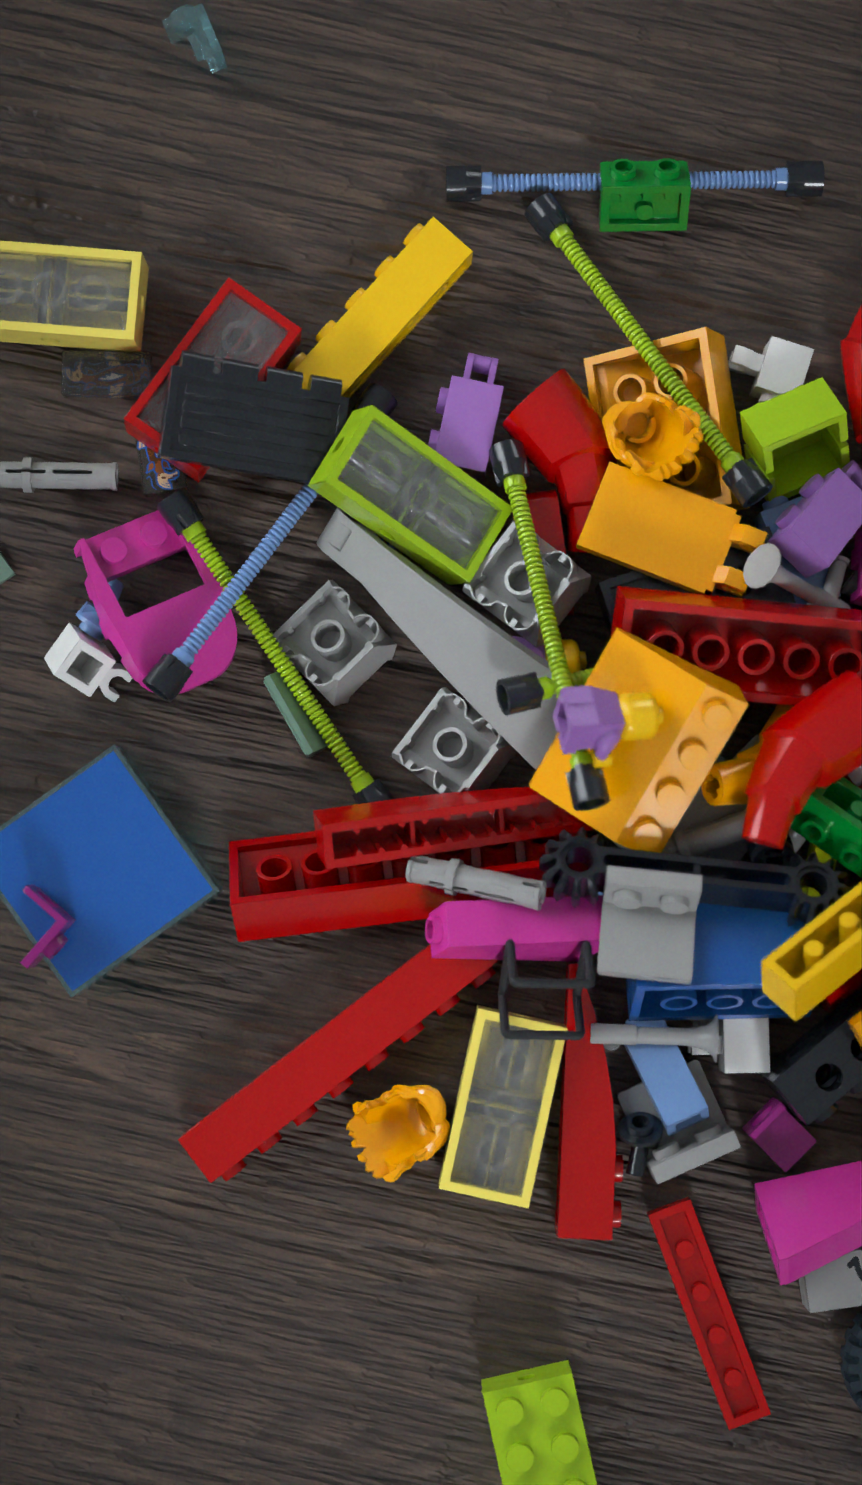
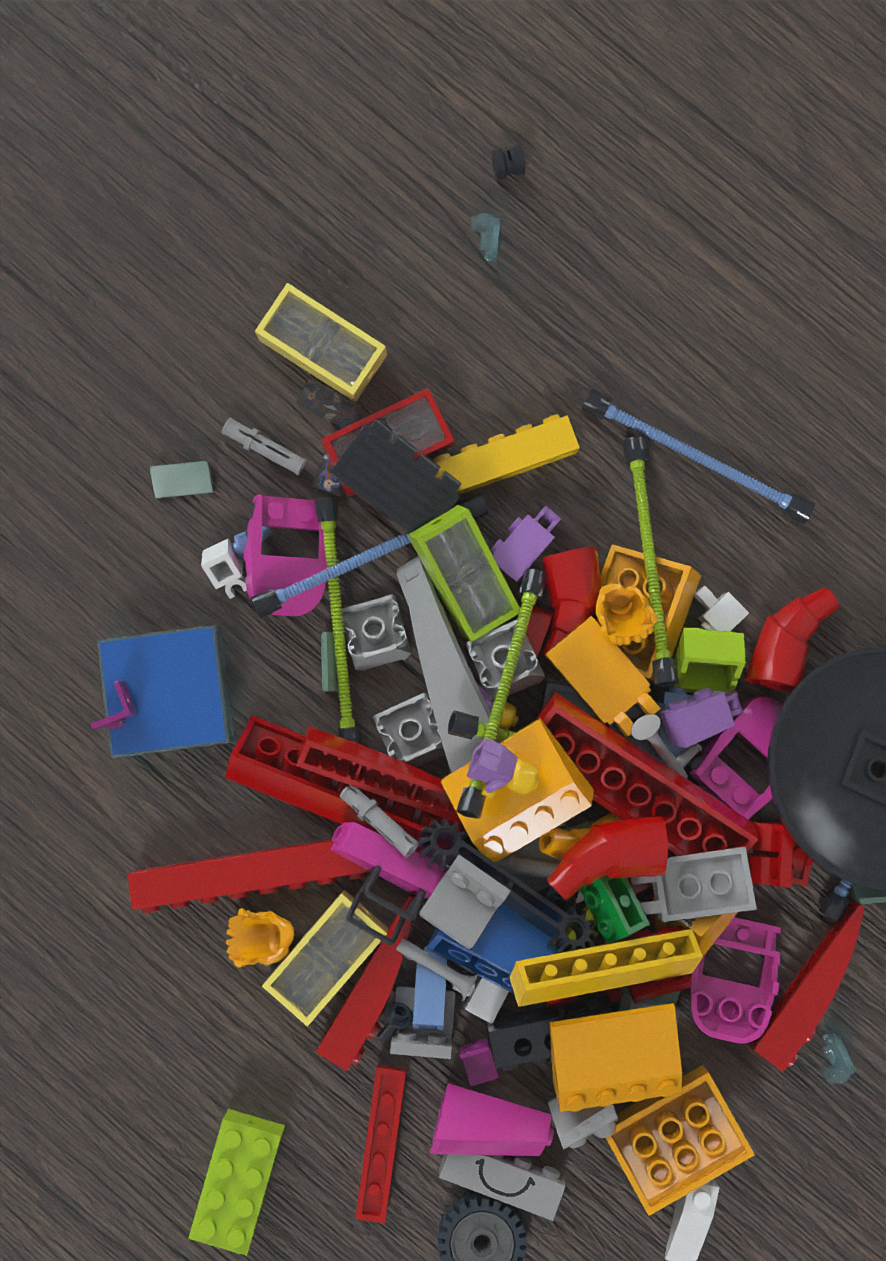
camera: 30 degrees right, 0 degrees up
(644, 195) = (699, 468): green bracket -> none

